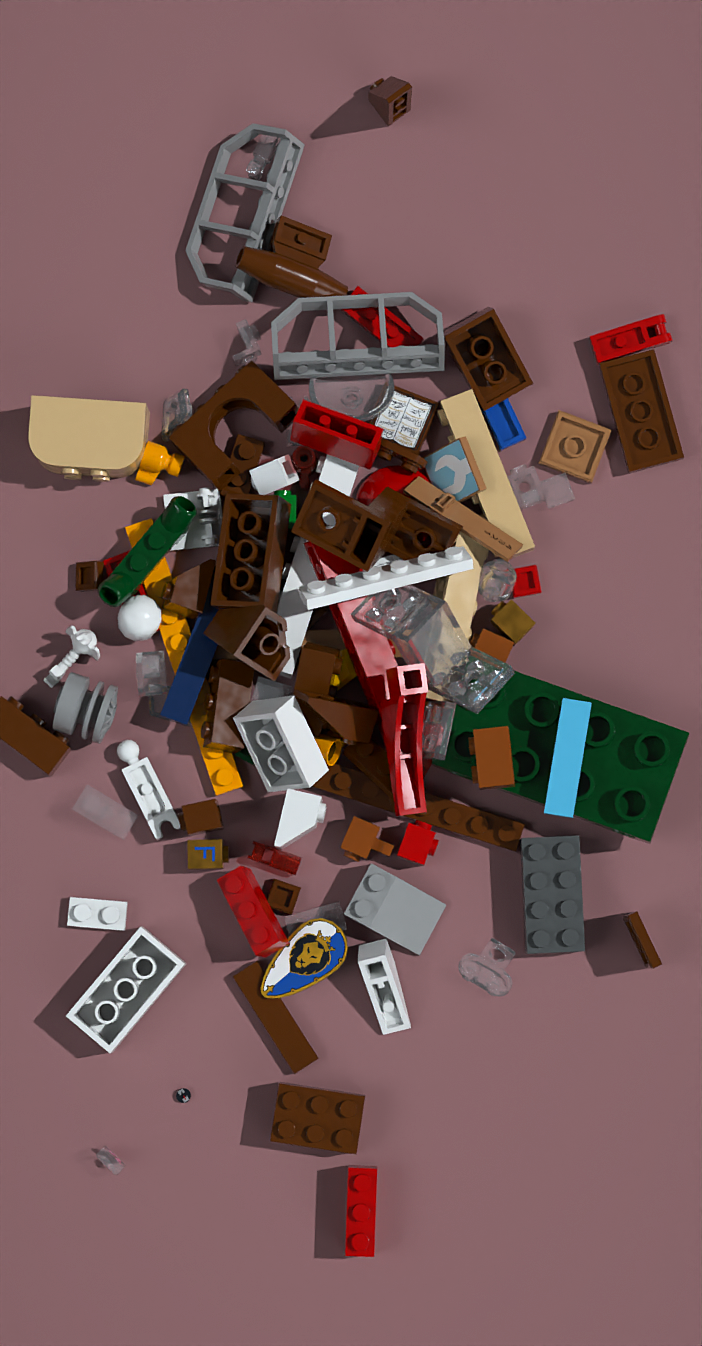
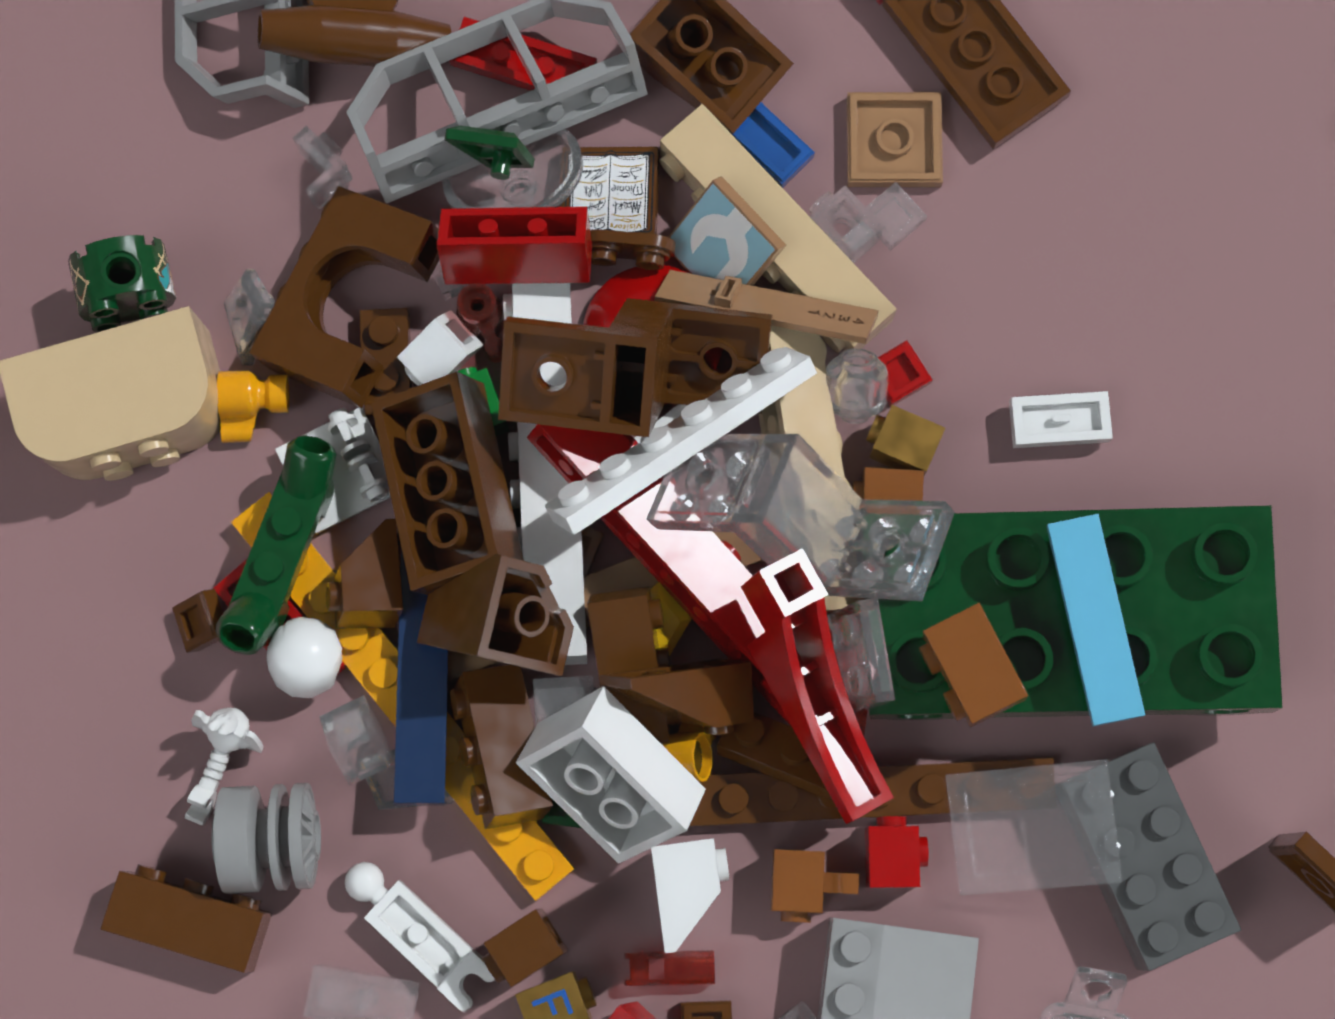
camera: 20 degrees left, 5 degrees down
(122, 361) = (121, 281): none -> dark green brick
(346, 374) = (491, 148): none -> dark green piece
(496, 856) = (1034, 827): none -> clear piece
(603, 641) = (1060, 419): none -> white plate

